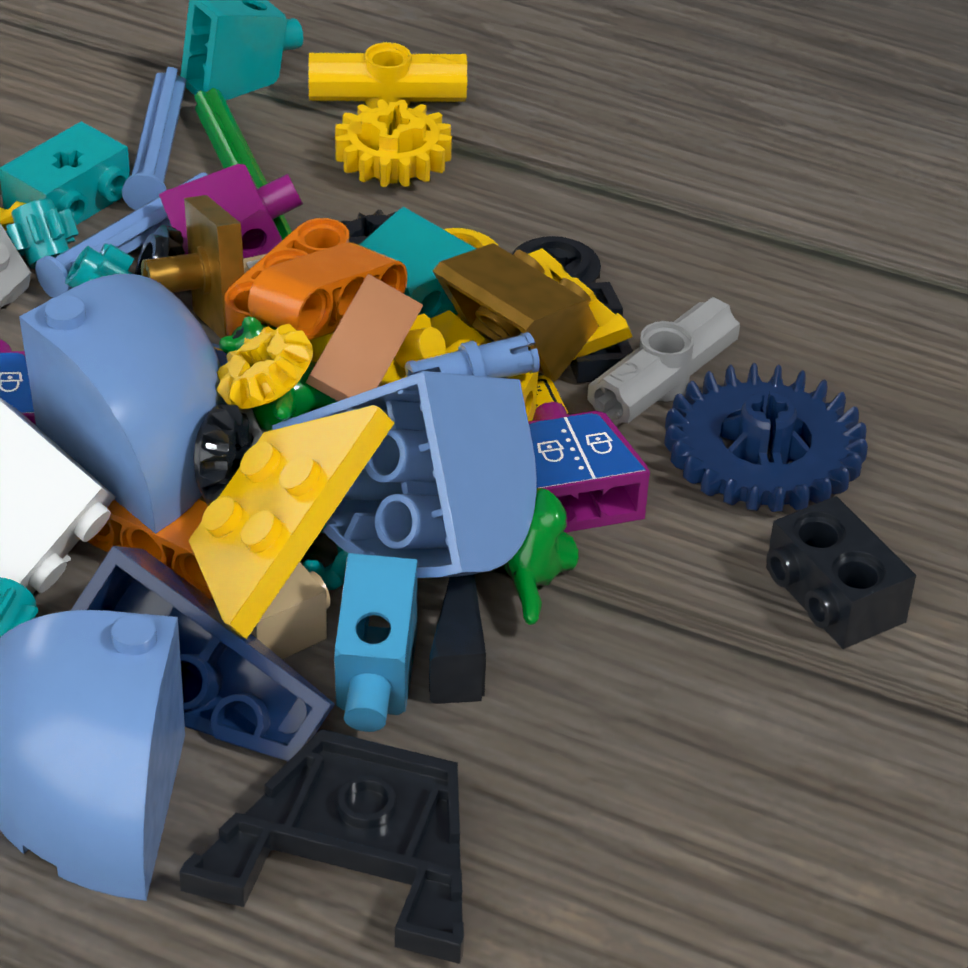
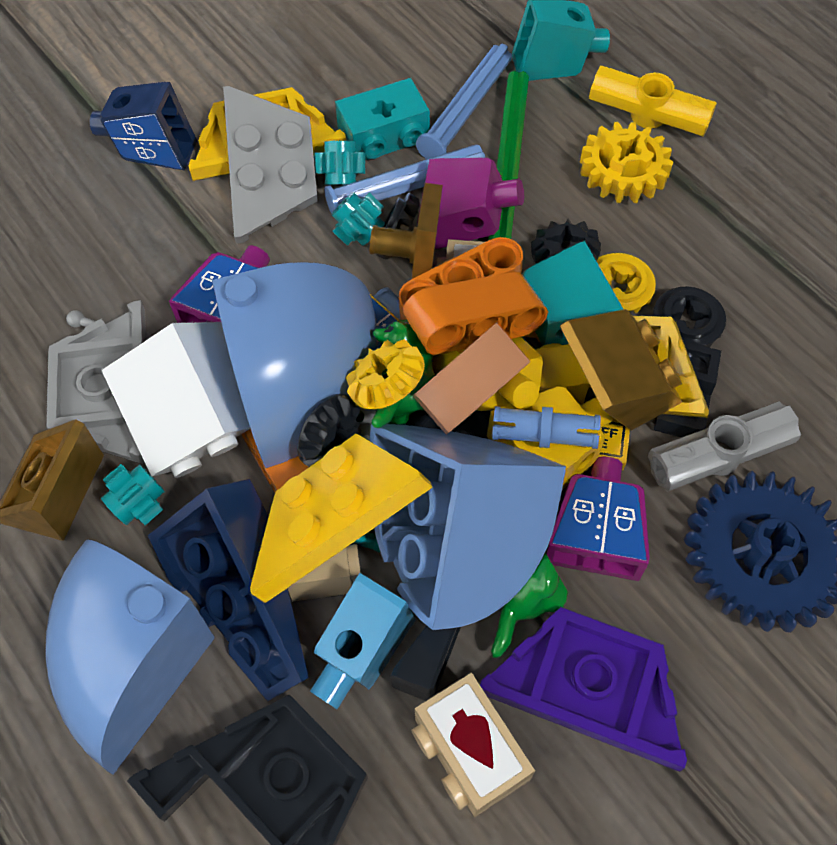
camera: 30 degrees right, 20 degrees up
(557, 700) = (471, 745): none -> brick
(653, 609) = (594, 684): none -> dark purple wing
(840, 572) = (772, 717): black brick -> none

